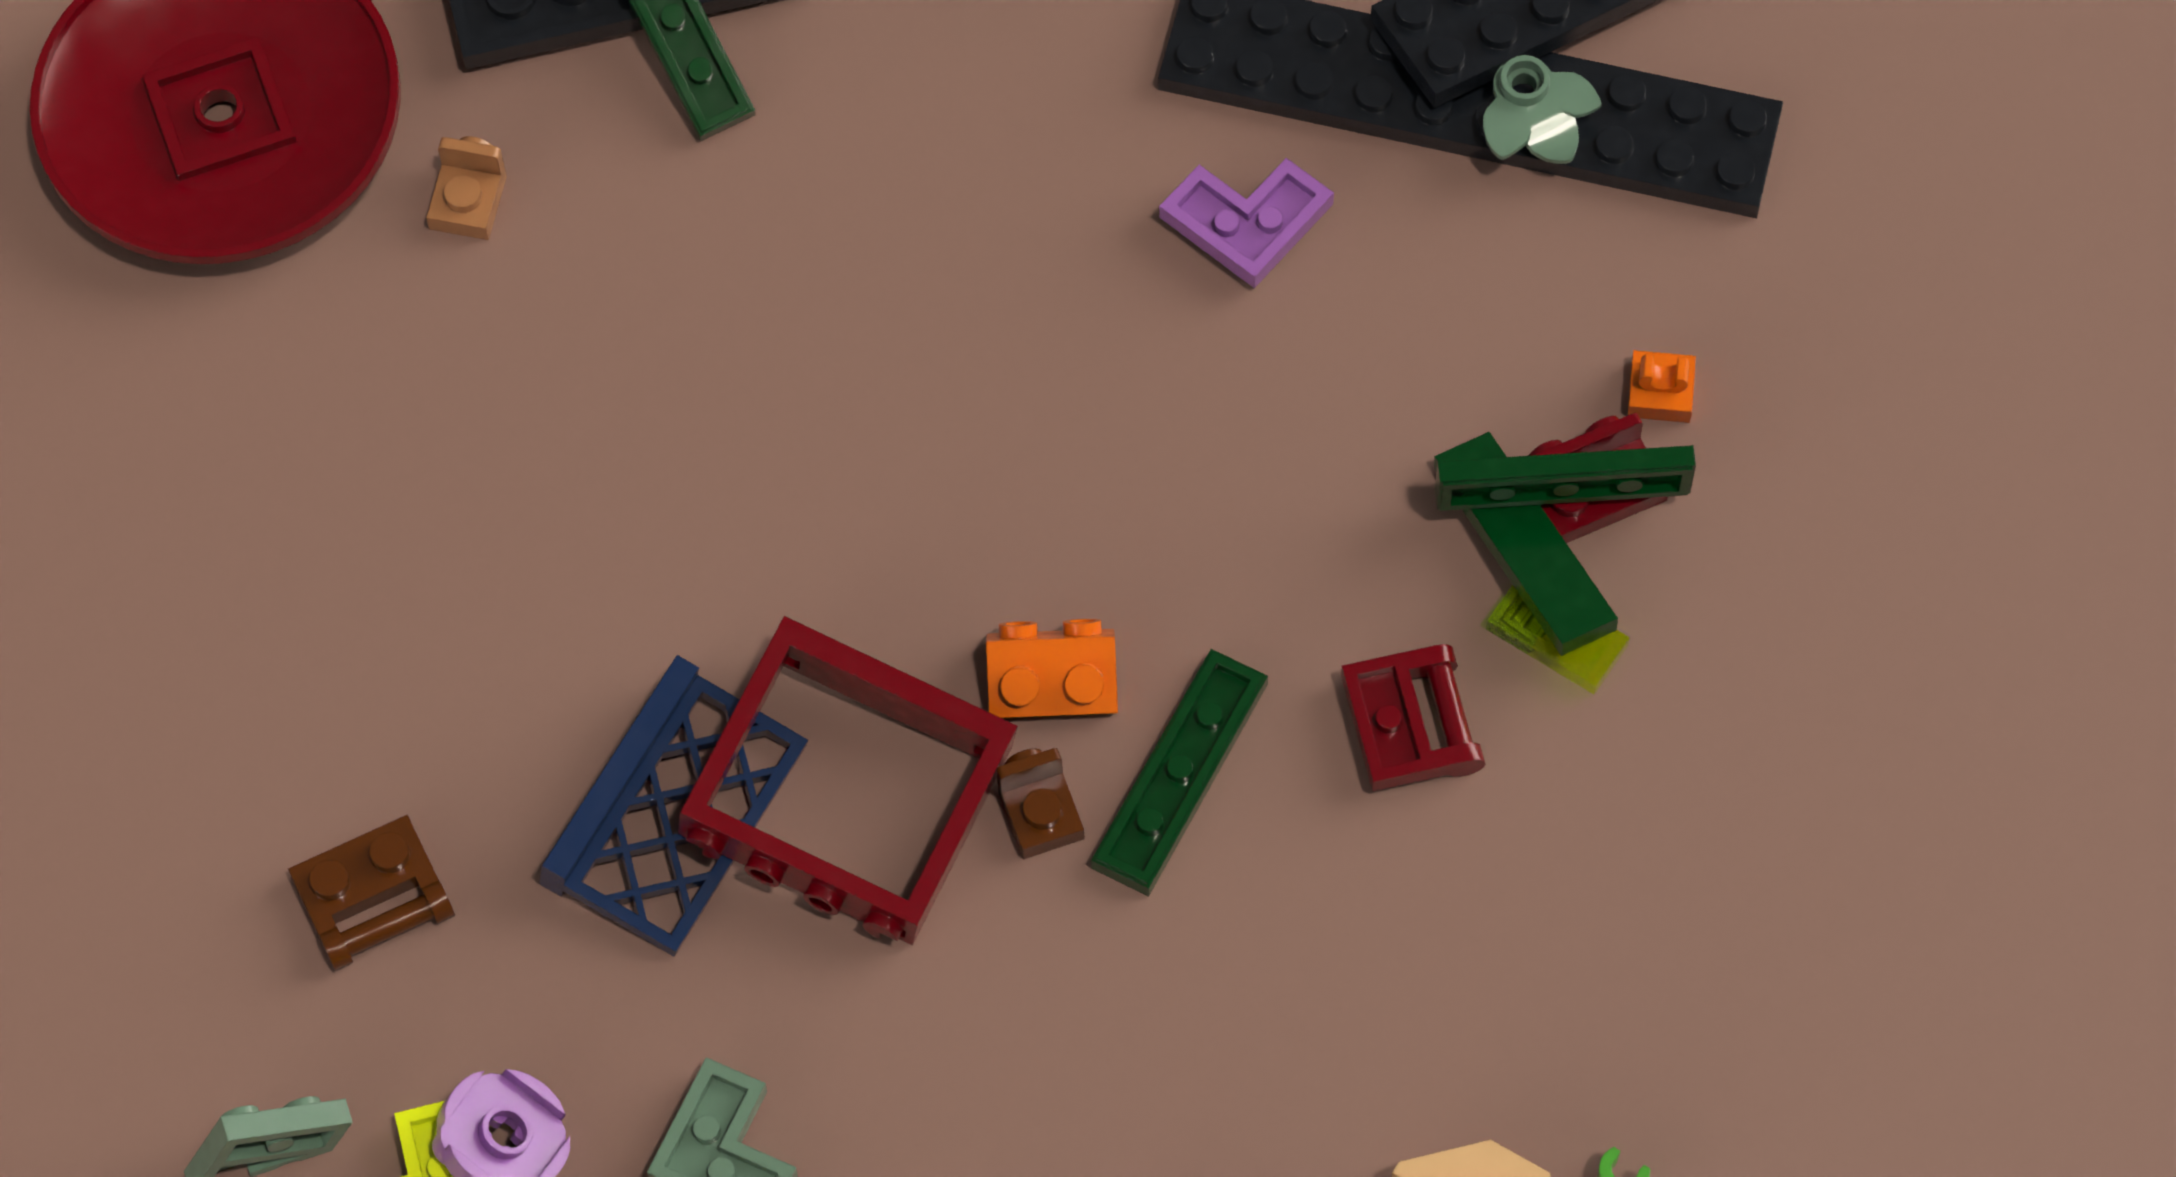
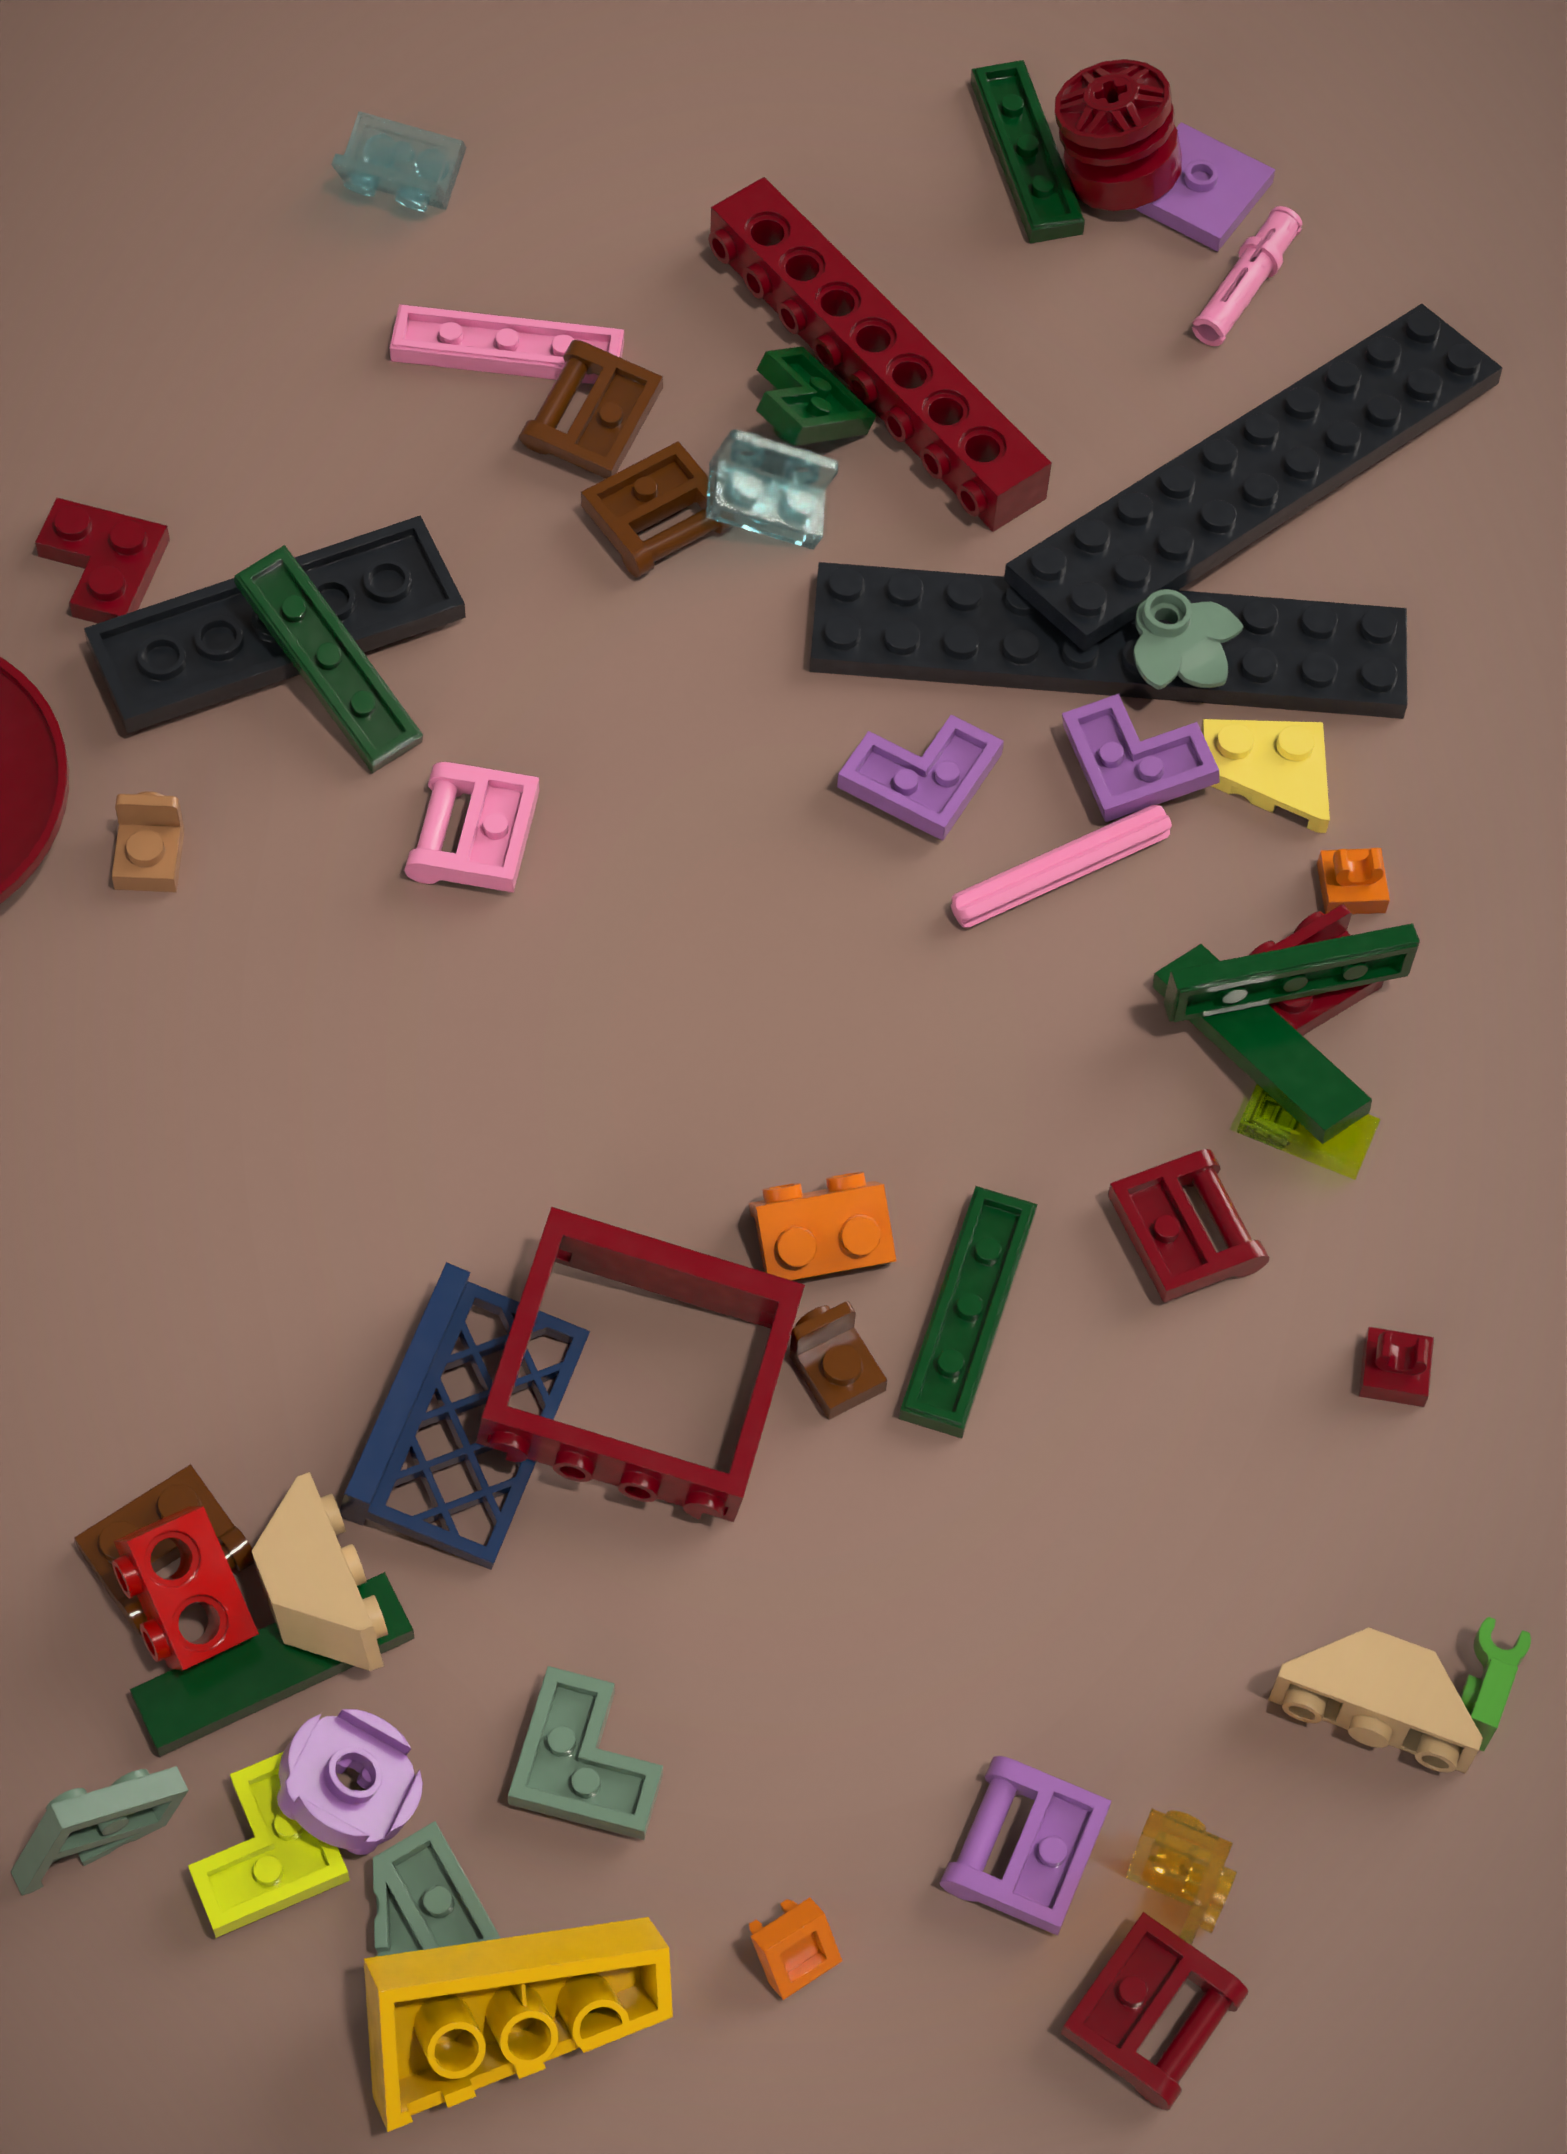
camera: 15 degrees left, 5 degrees down
(393, 927) = (200, 1578): none -> red brick
(453, 1015) = (248, 1678): none -> dark green tile
(500, 942) = (315, 1581): none -> tan slope
(805, 220) = (492, 831): none -> bright pink plate
(1367, 330) = (1060, 866): none -> bright pink axle
(1462, 244) = (1132, 772): none -> medium lavender plate
(1588, 888) = (1396, 1366): none -> dark red tile
(1604, 251) = (1273, 765): none -> light yellow wing

